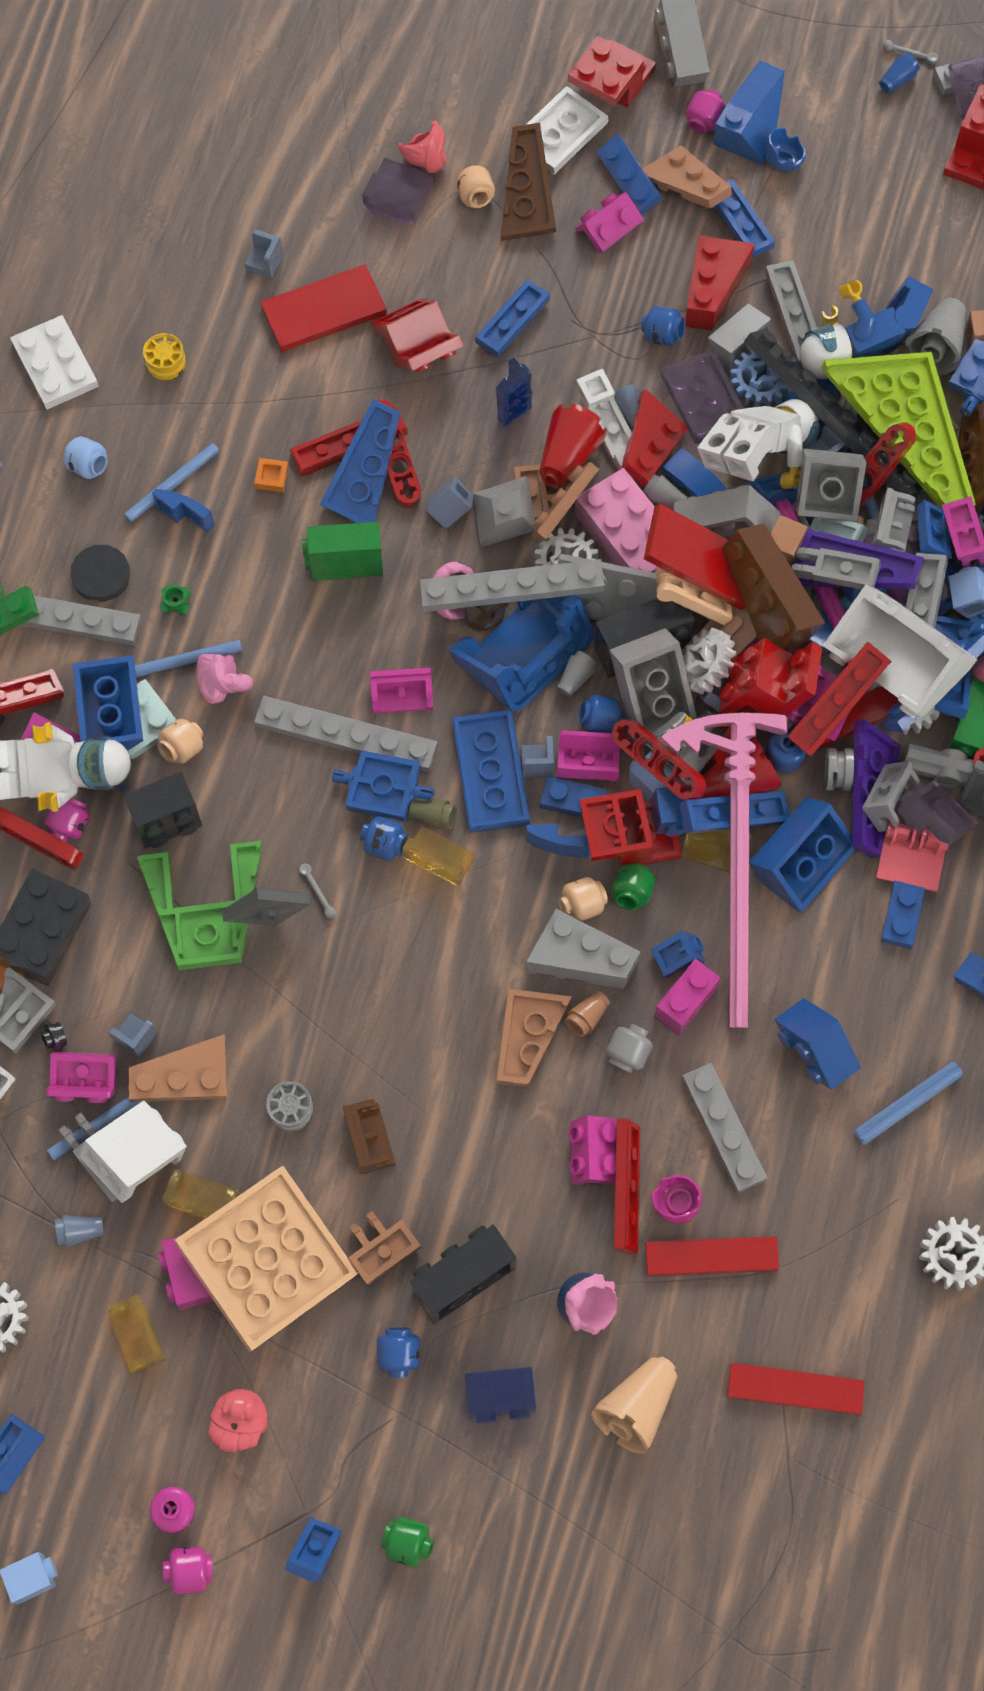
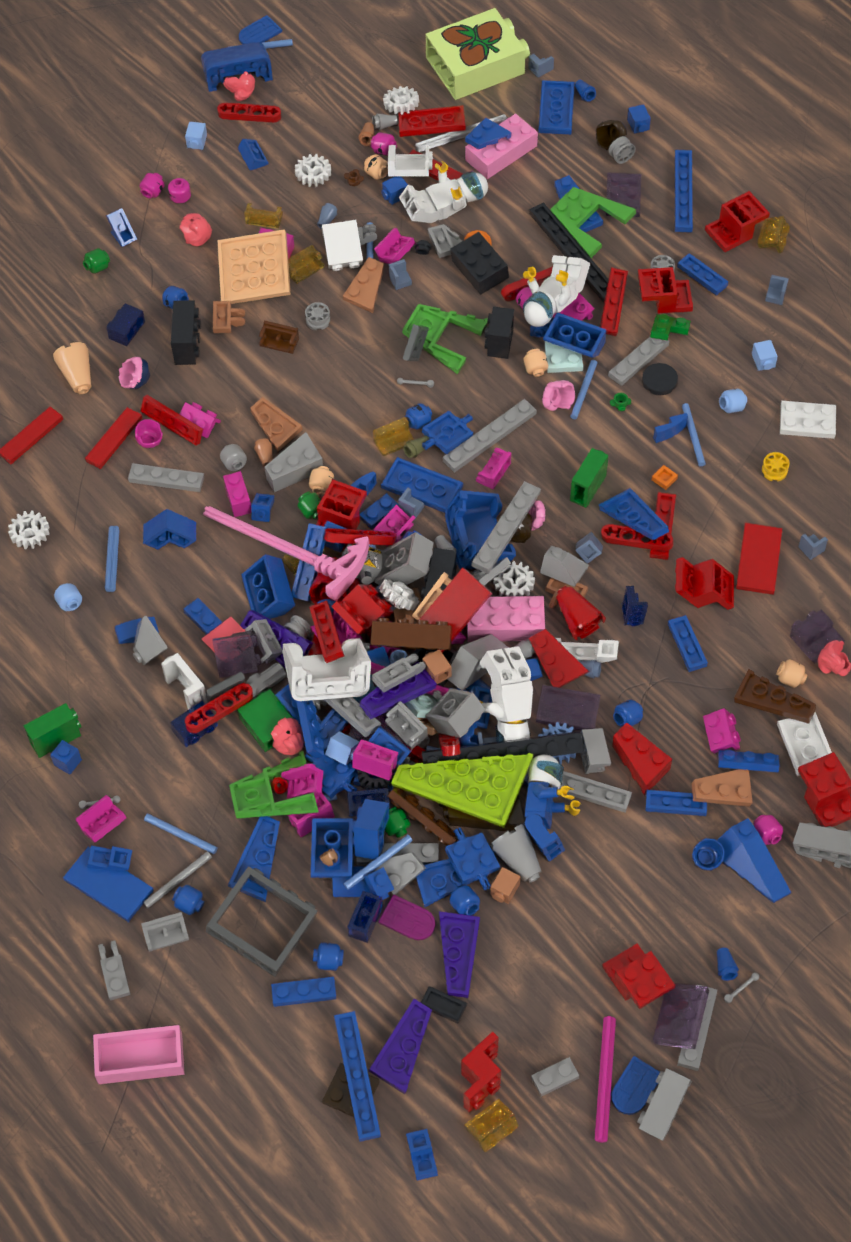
camera: 125 degrees right, 10 degrees down
(563, 501) = (542, 584): nougat wing -> none

